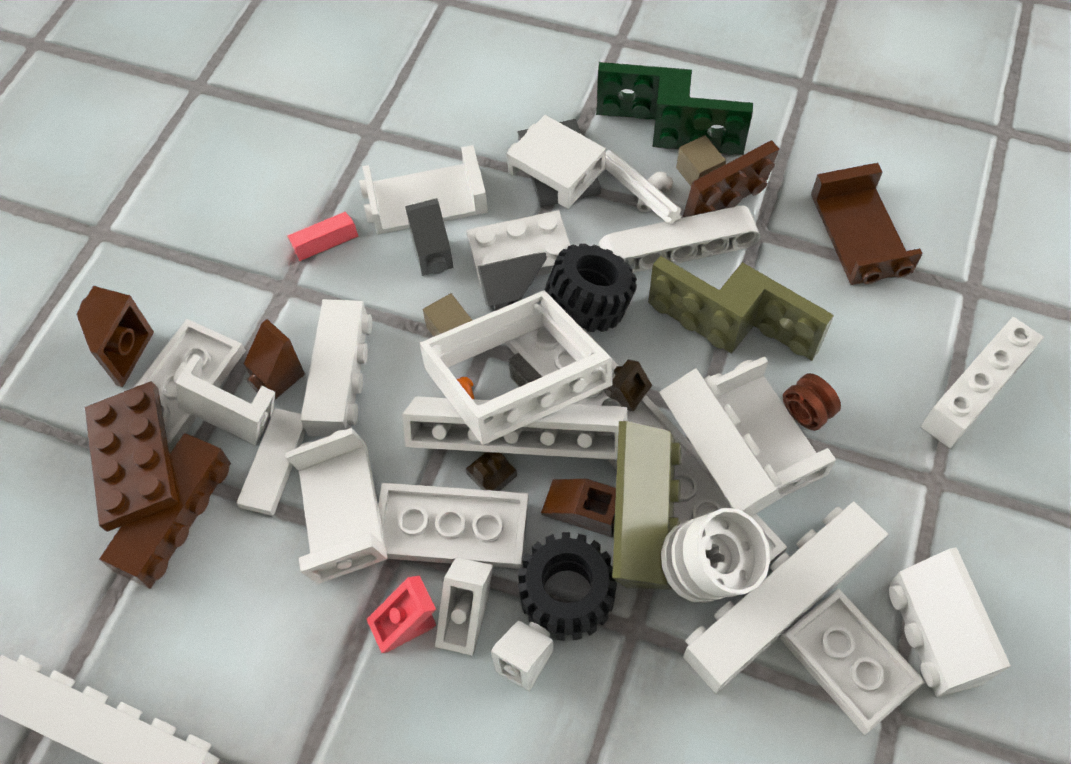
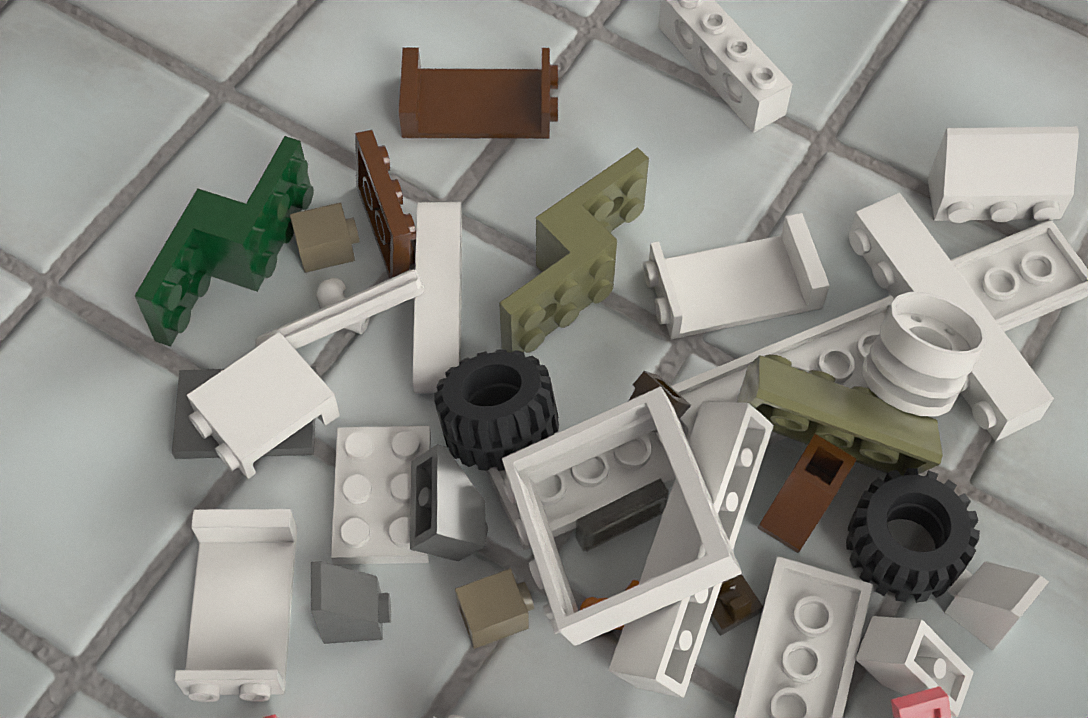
camera: 80 degrees left, 0 degrees up
(720, 444) = (766, 316): white brick -> none
(811, 401) = (715, 217): copper wheel -> none

